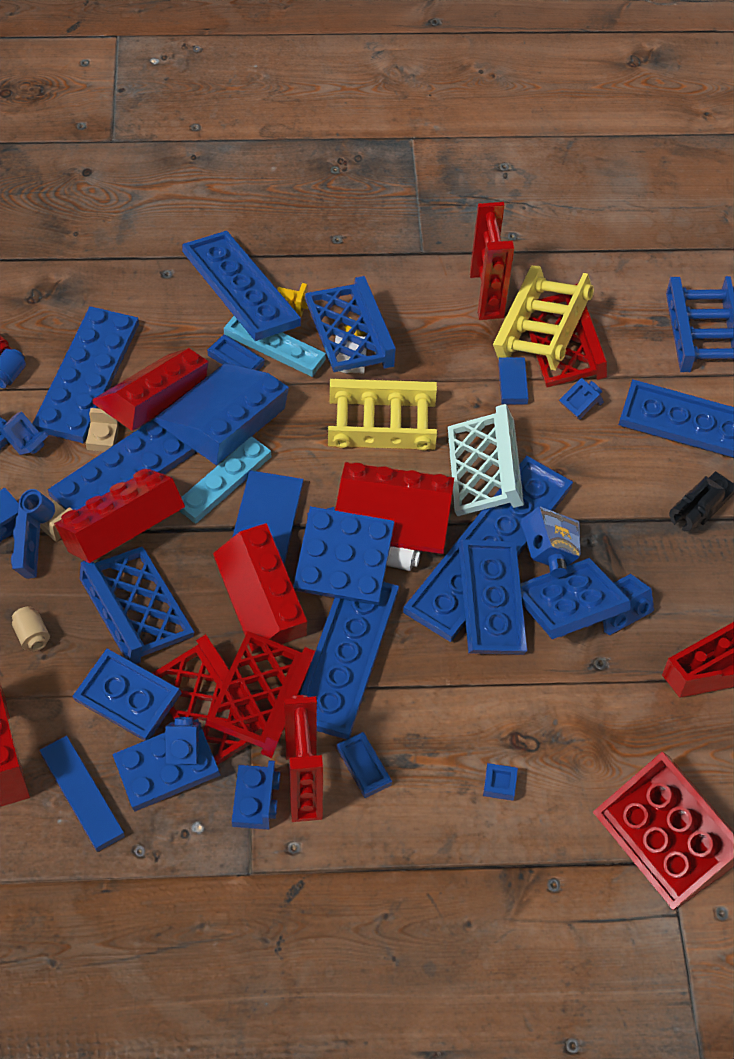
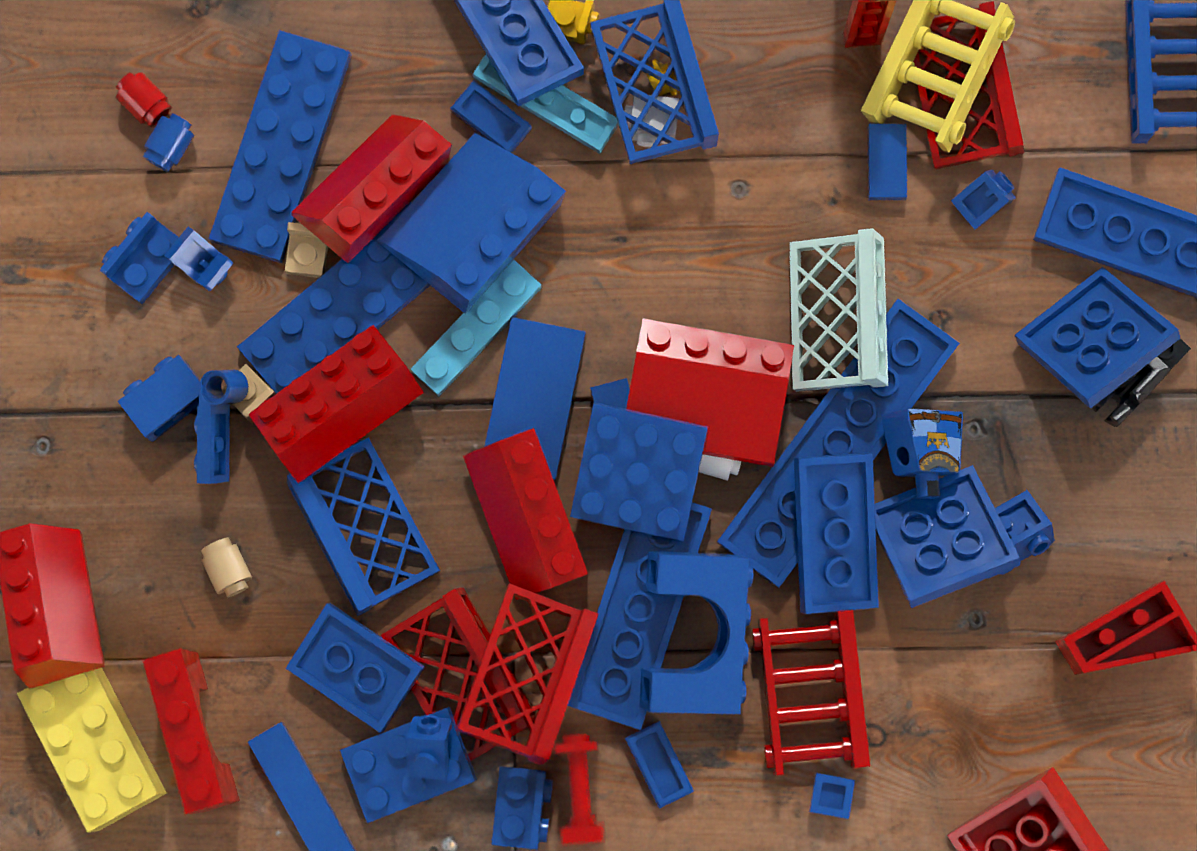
camera: 10 degrees right, 25 degrees up
(382, 393) = (681, 191): light yellow fence -> none
(408, 628) = (717, 681): none -> blue arch
(504, 692) = (844, 670): none -> red fence
(670, 472) = (1097, 337): none -> blue plate

